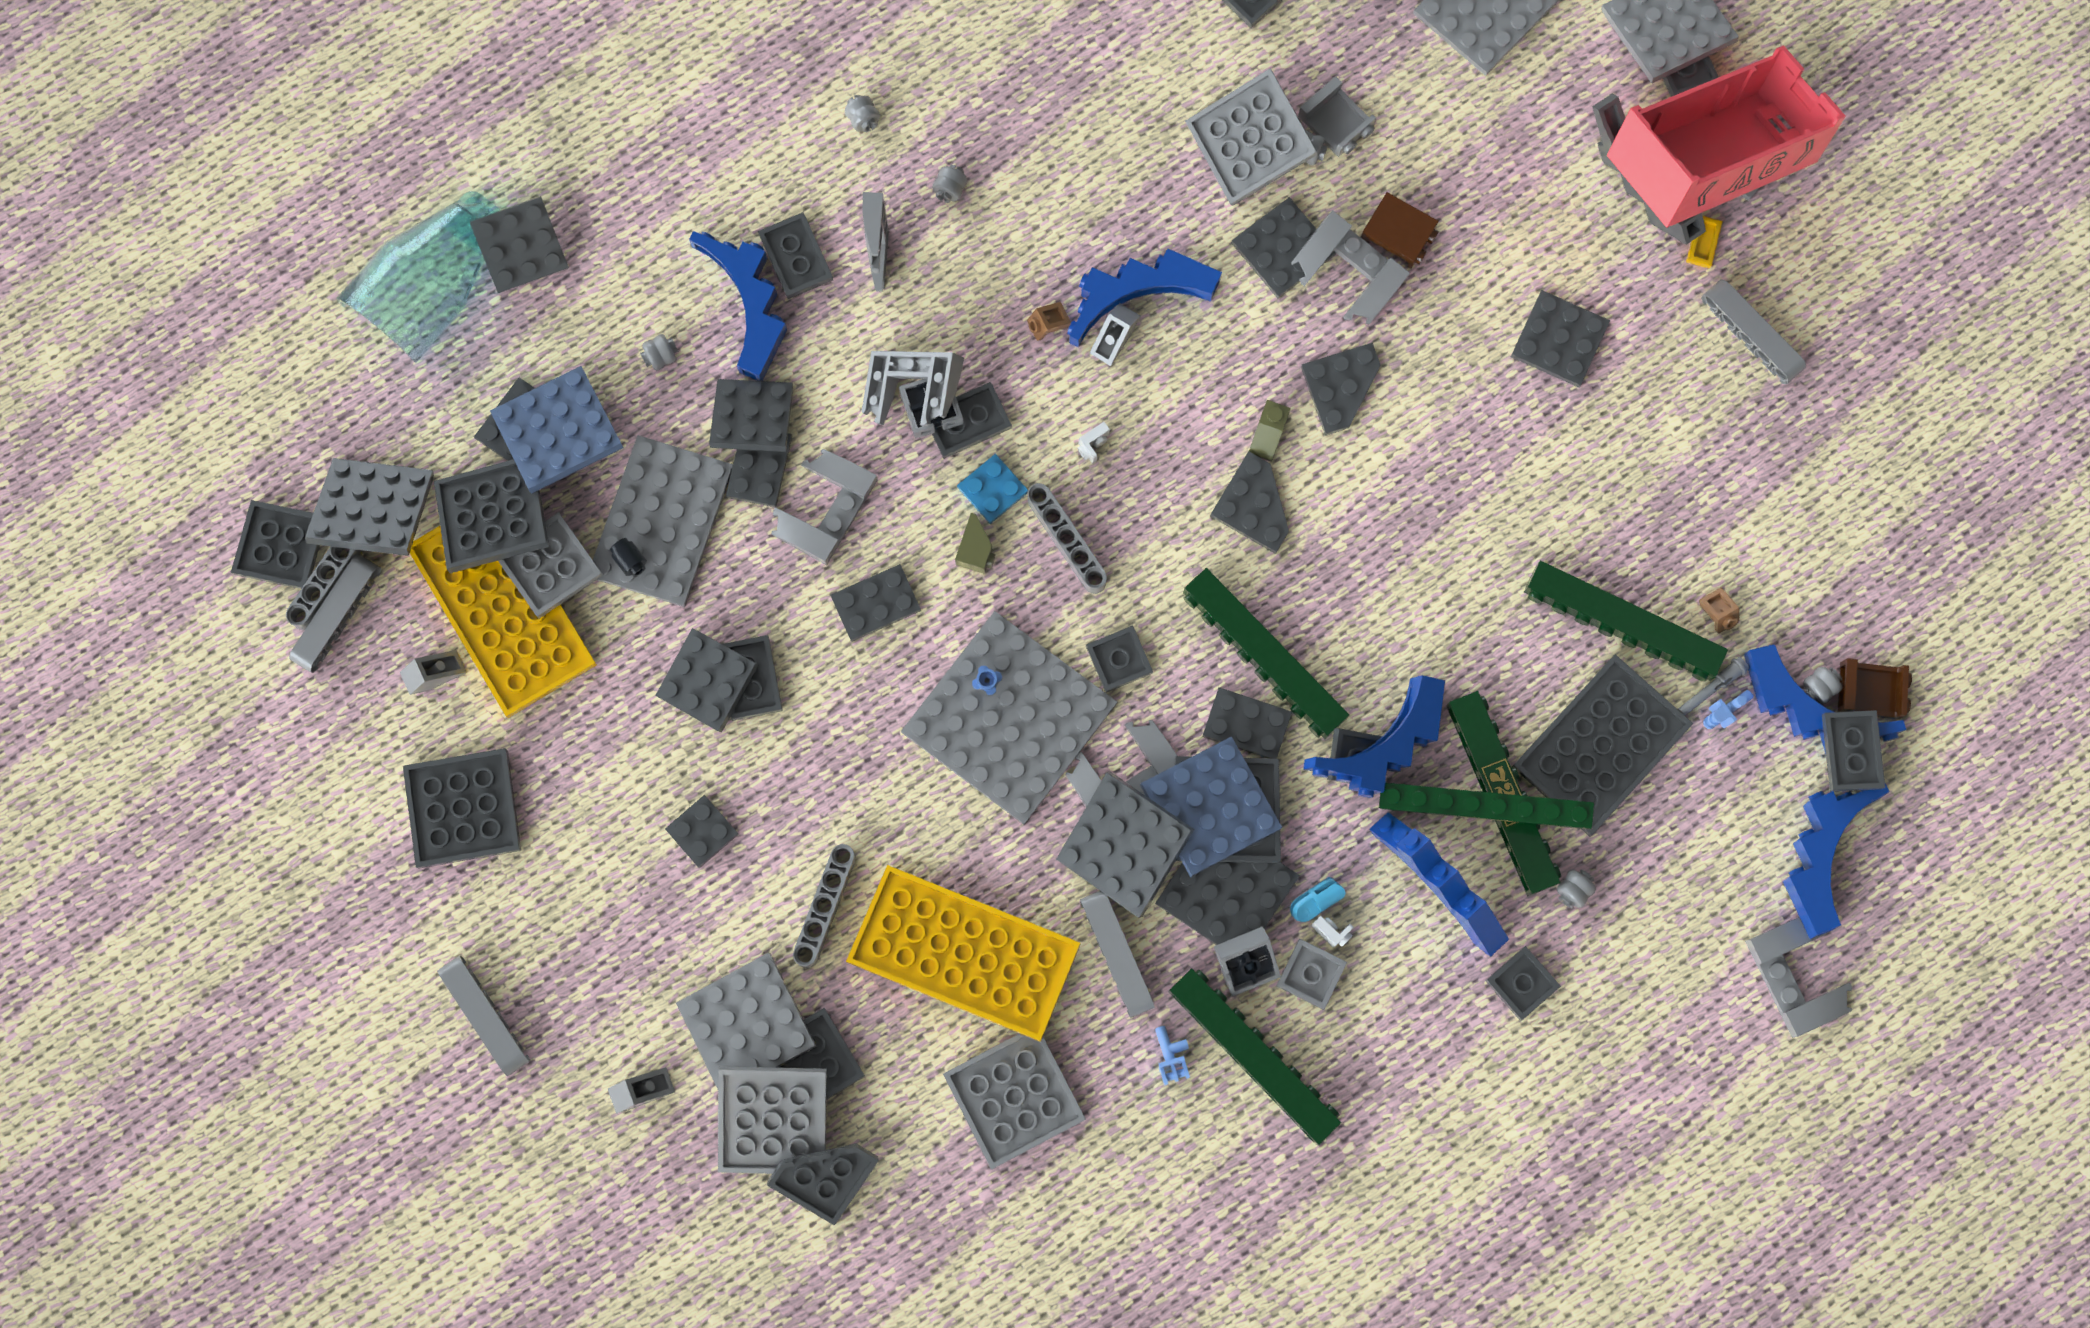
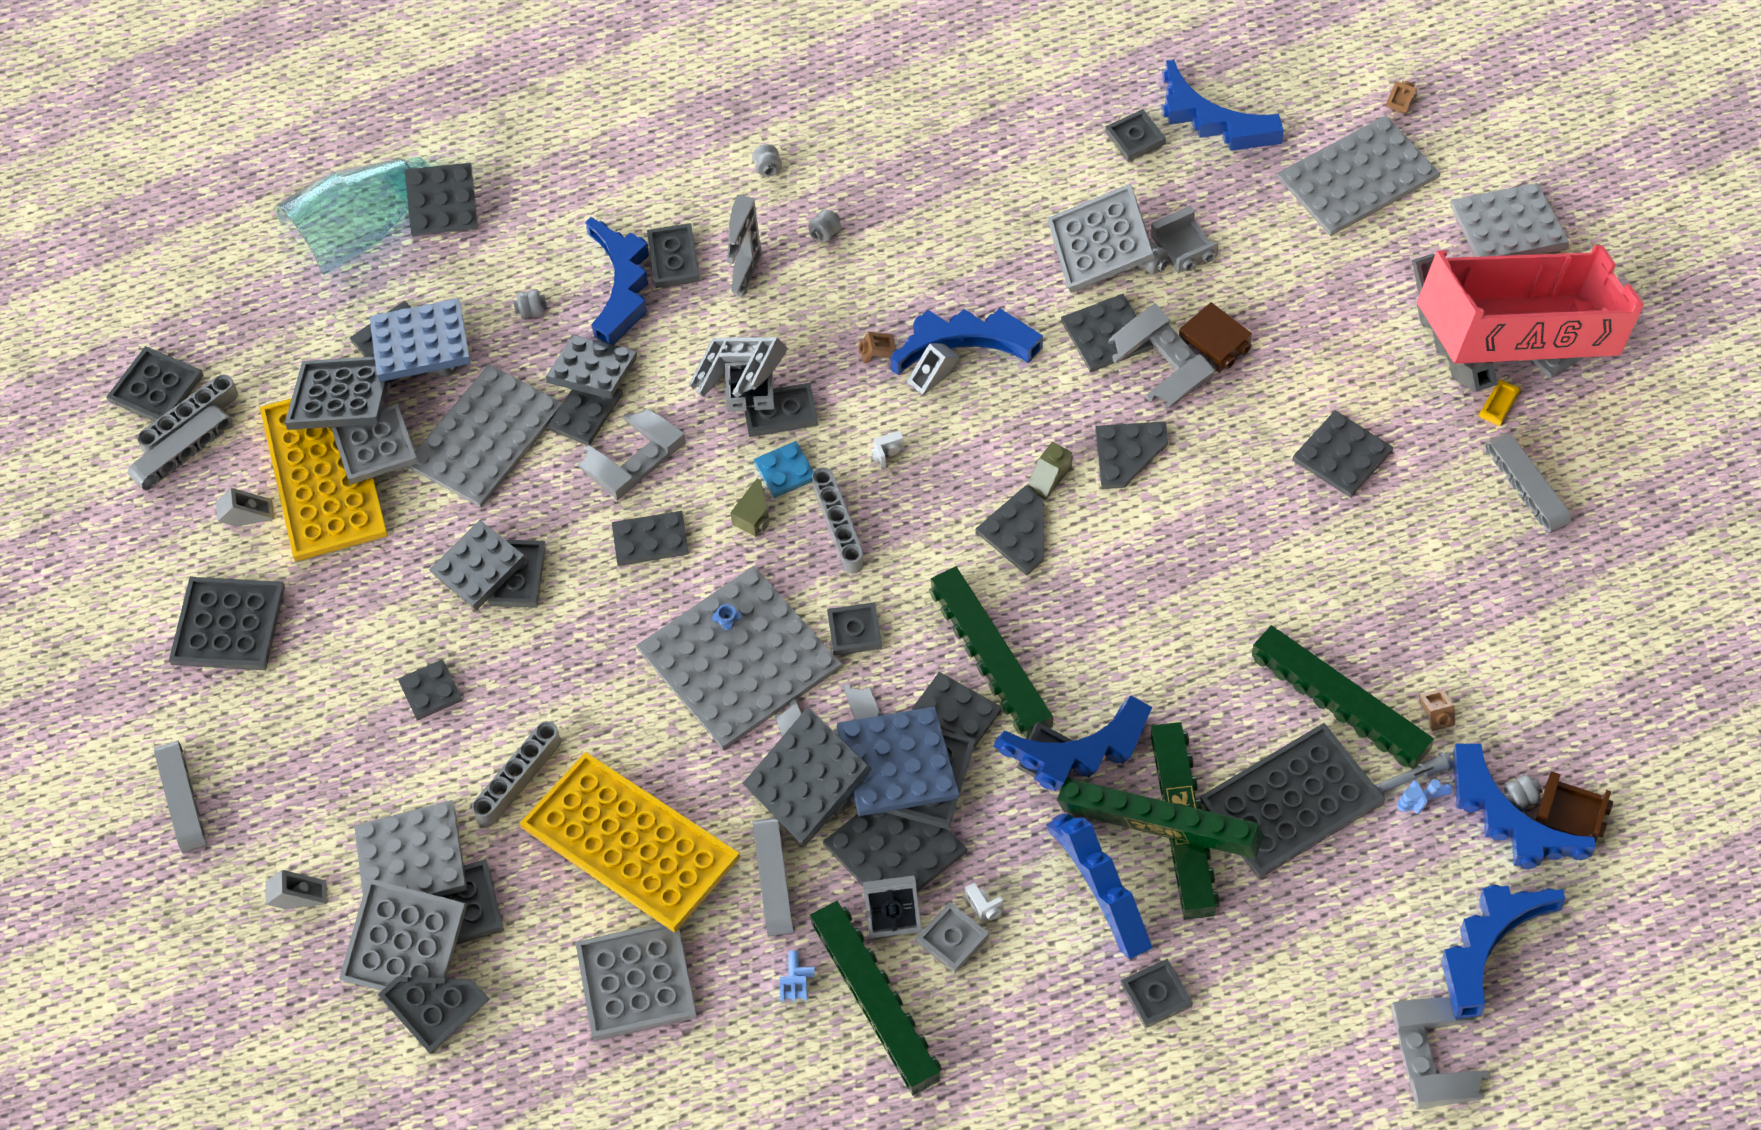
camera: 20 degrees right, 20 degrees down
(370, 507) = (240, 368): plate -> none
(628, 557) = (444, 451): black brick -> none
(1317, 900) = (976, 871): medium azure arm -> none
(1576, 889) = (1231, 919): light grey piece -> none
(1853, 751) = (1535, 850): dark grey plate -> none

